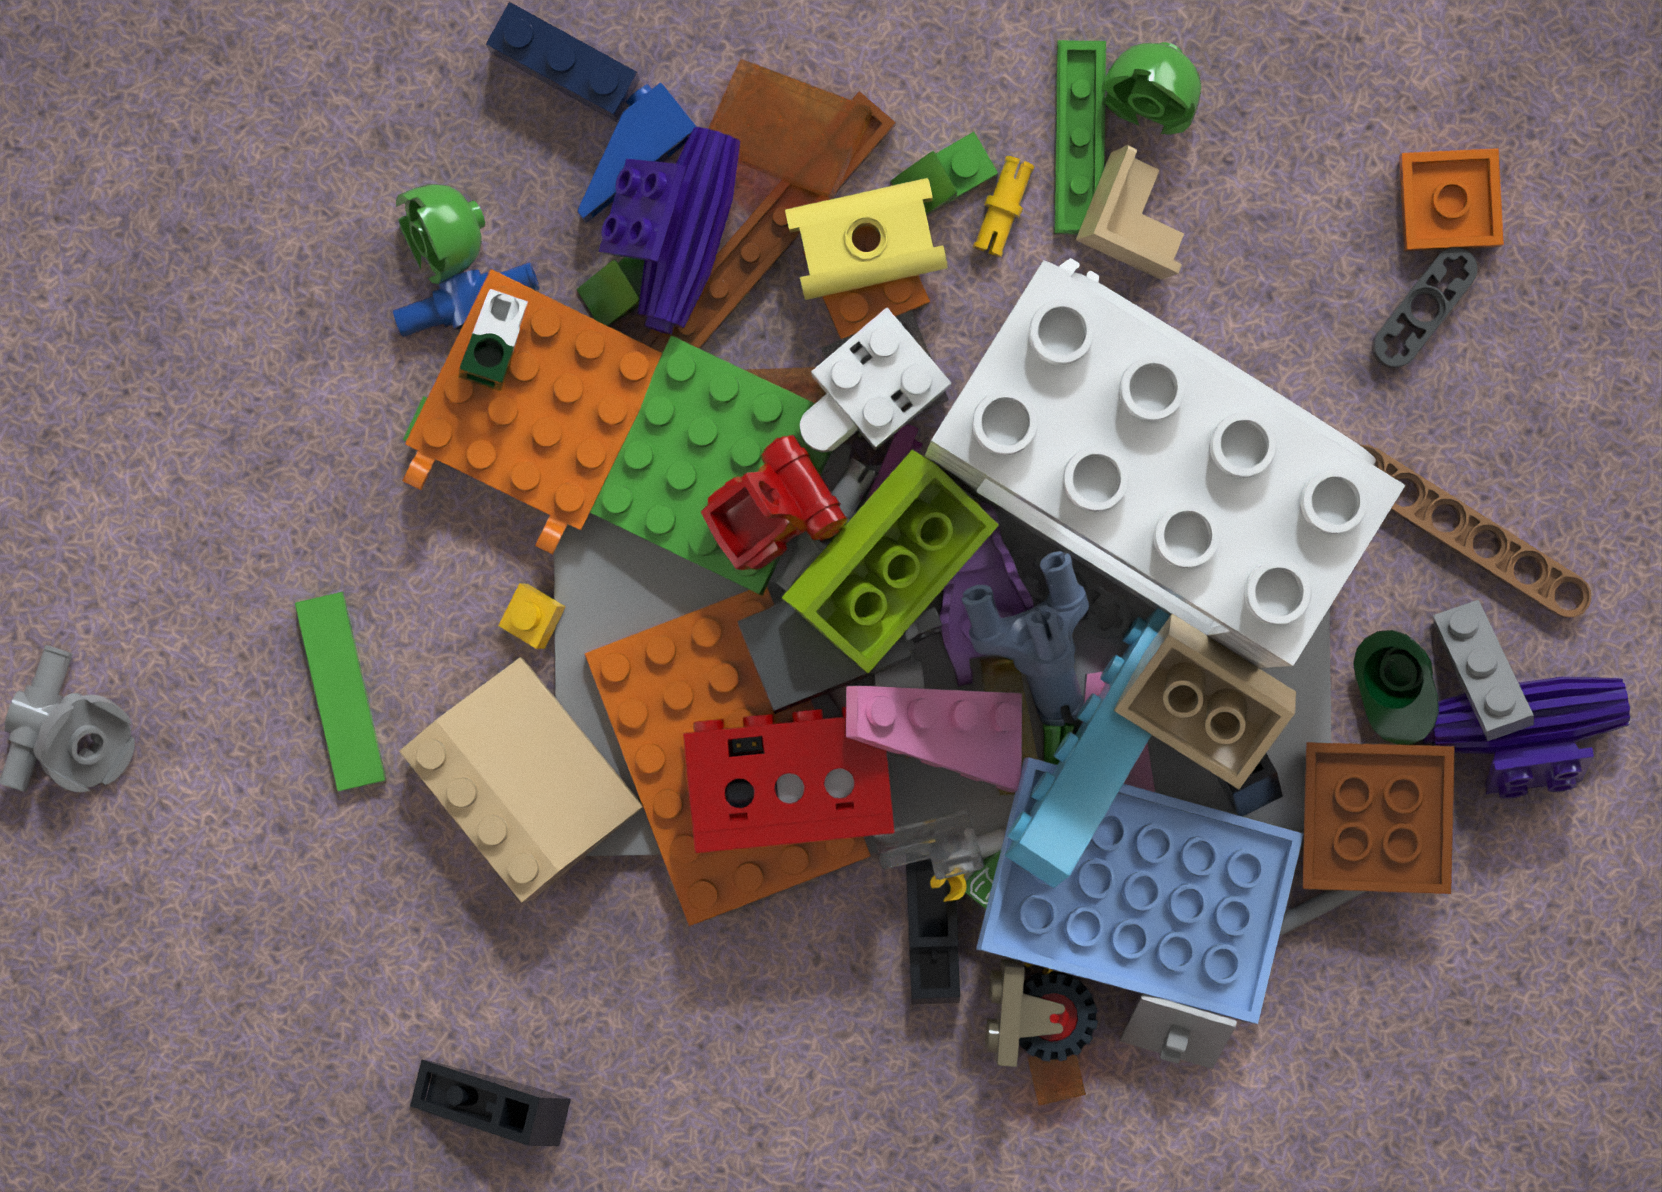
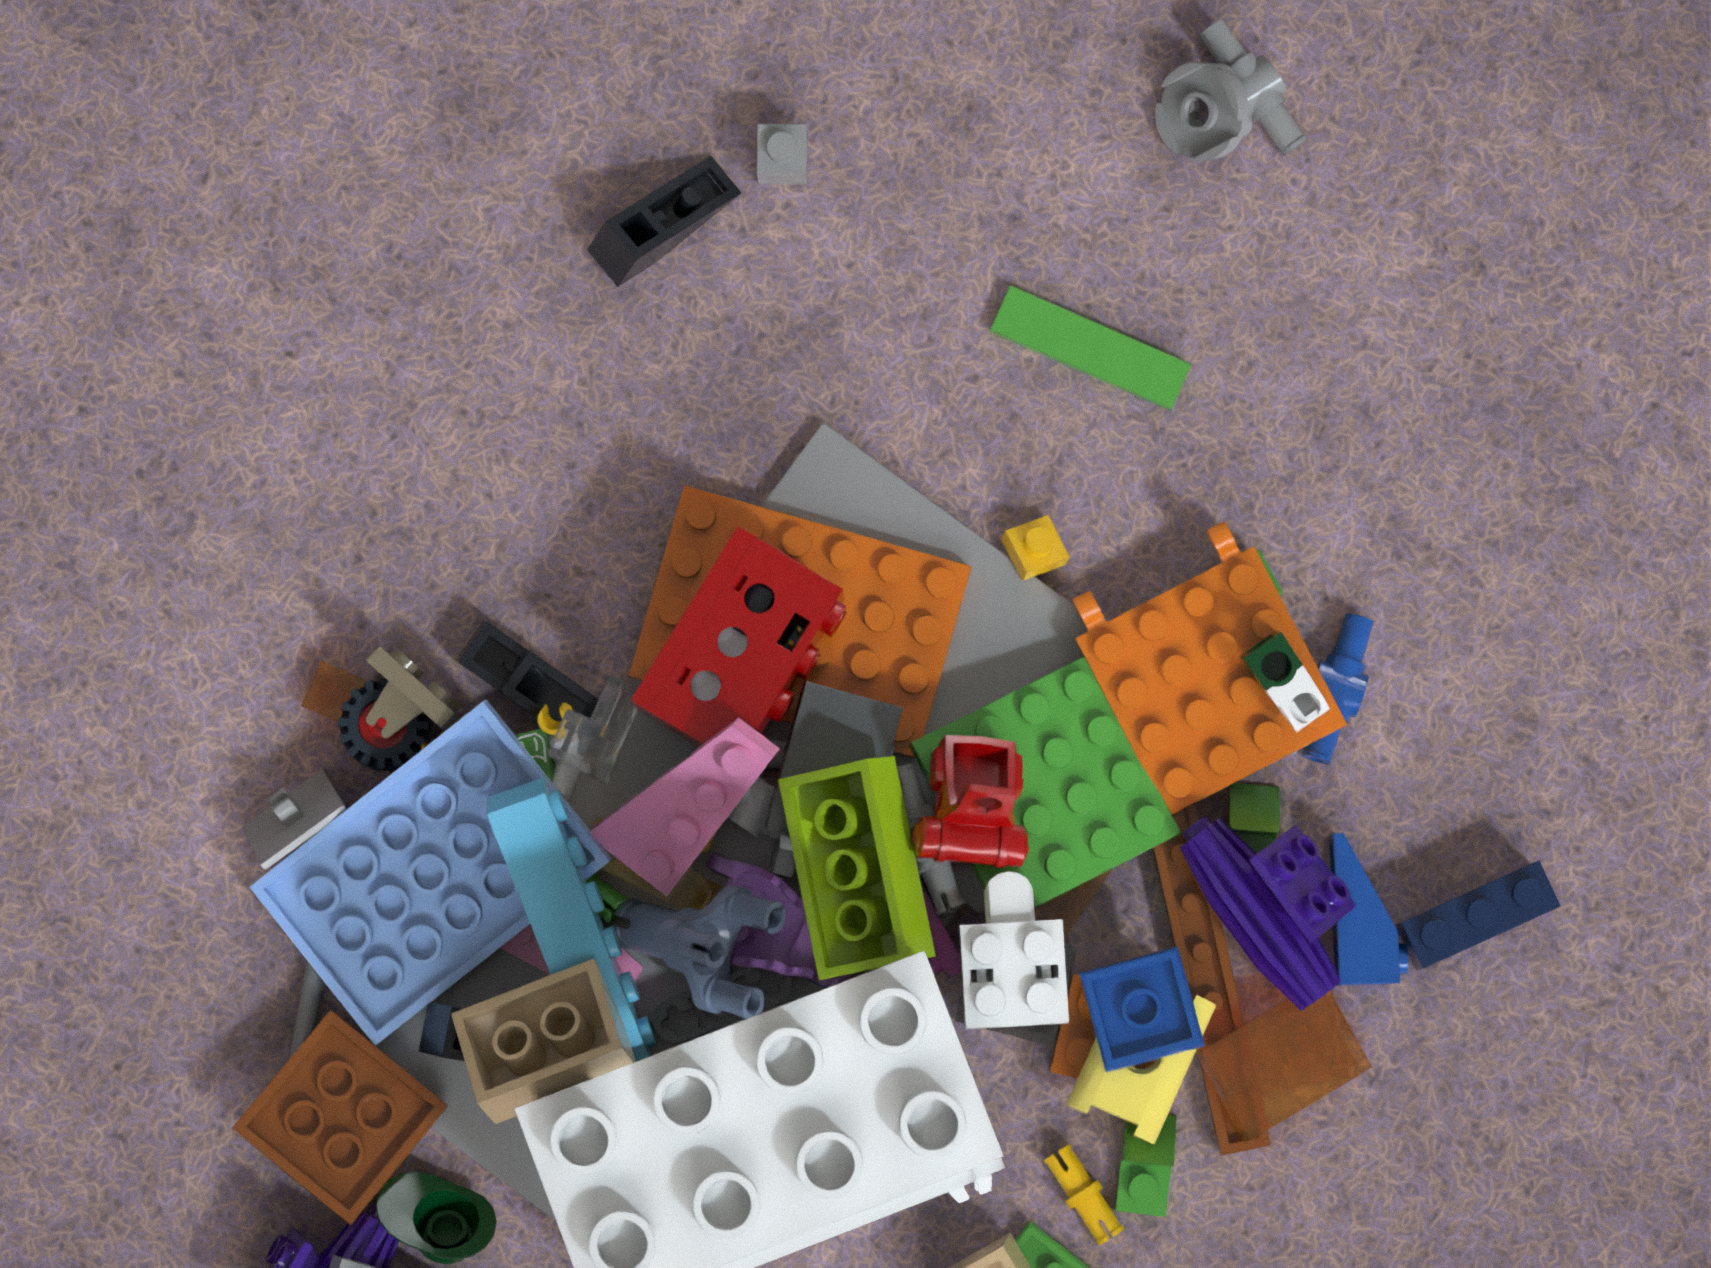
camera: 130 degrees right, 5 degrees down
(367, 1049) = (782, 153): none -> light grey brick
(441, 228) = (1411, 711): bright green cylinder -> none
(521, 780) = (906, 438): tan slope -> none
(832, 261) = (1142, 1009): none -> blue tile

